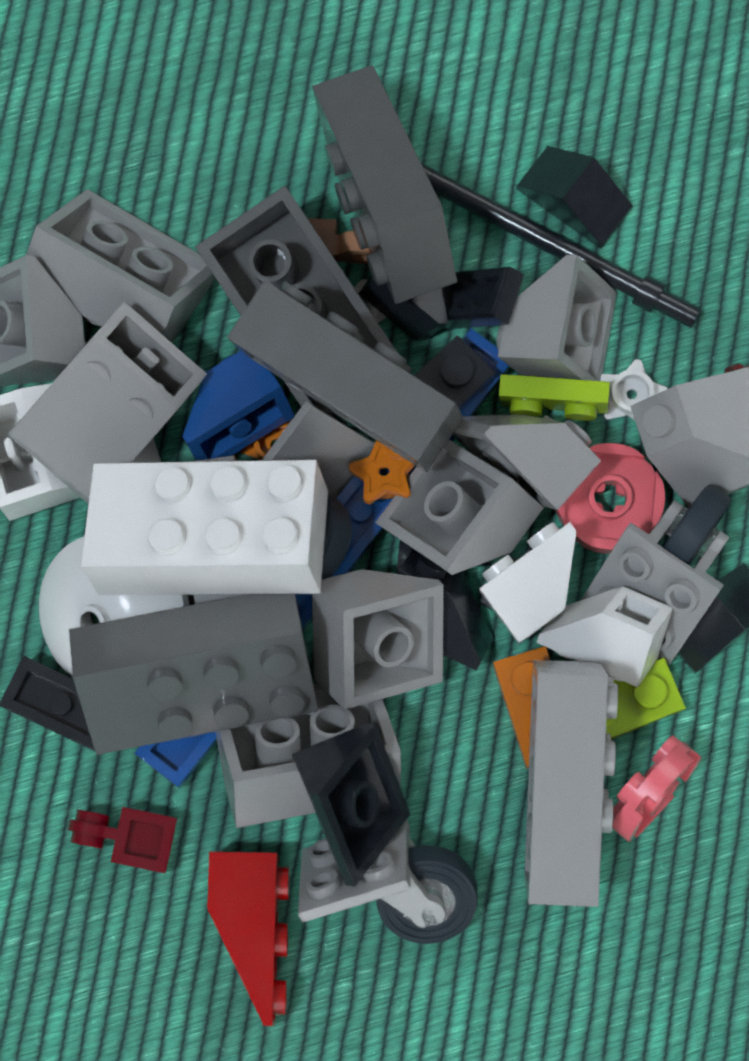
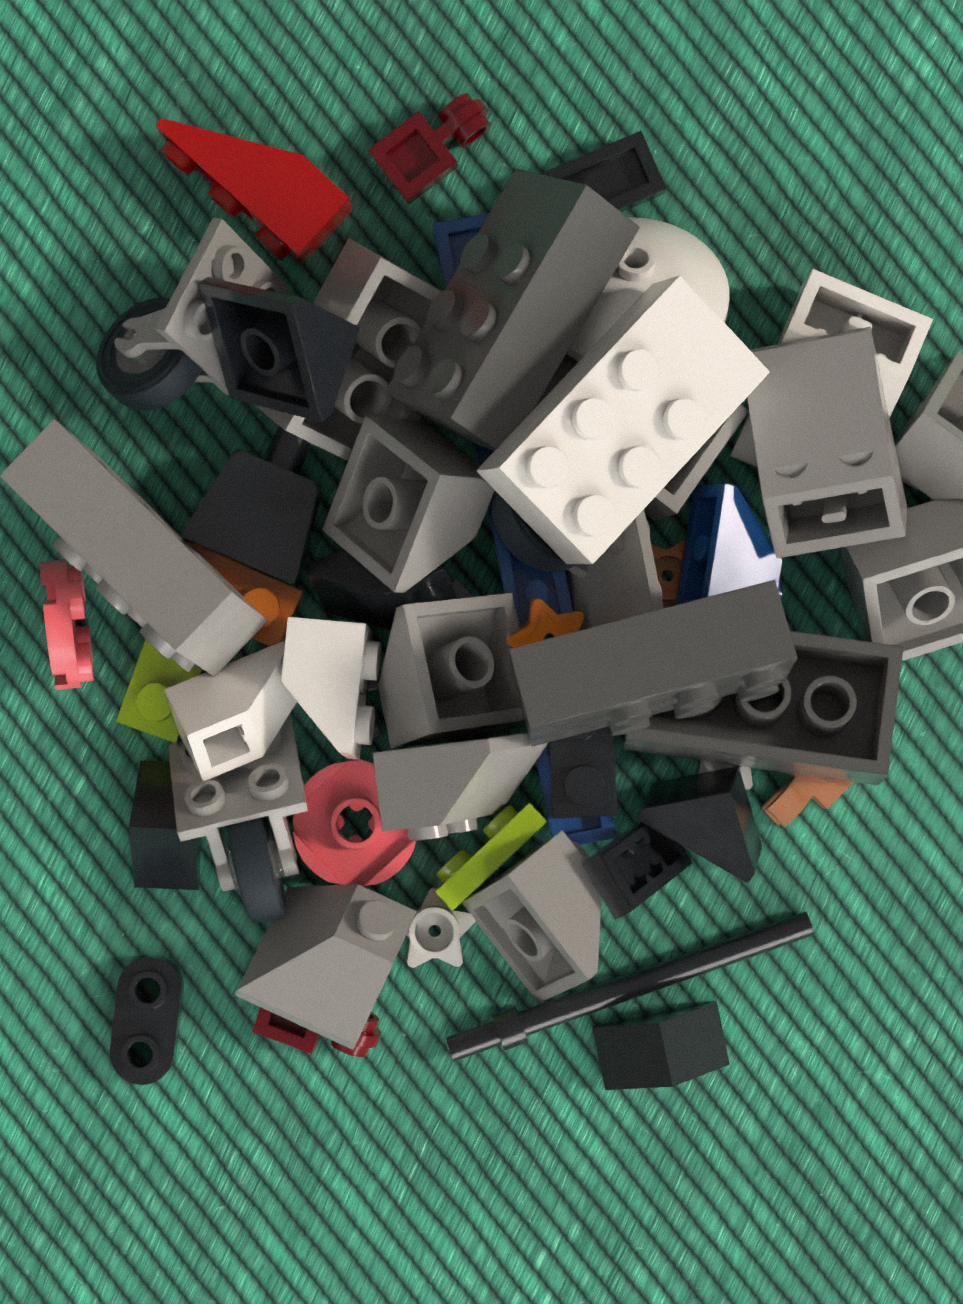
camera: 125 degrees right, 10 degrees up
(384, 186) = (809, 862): dark grey brick -> none
(466, 732) = (261, 510): none -> black torso

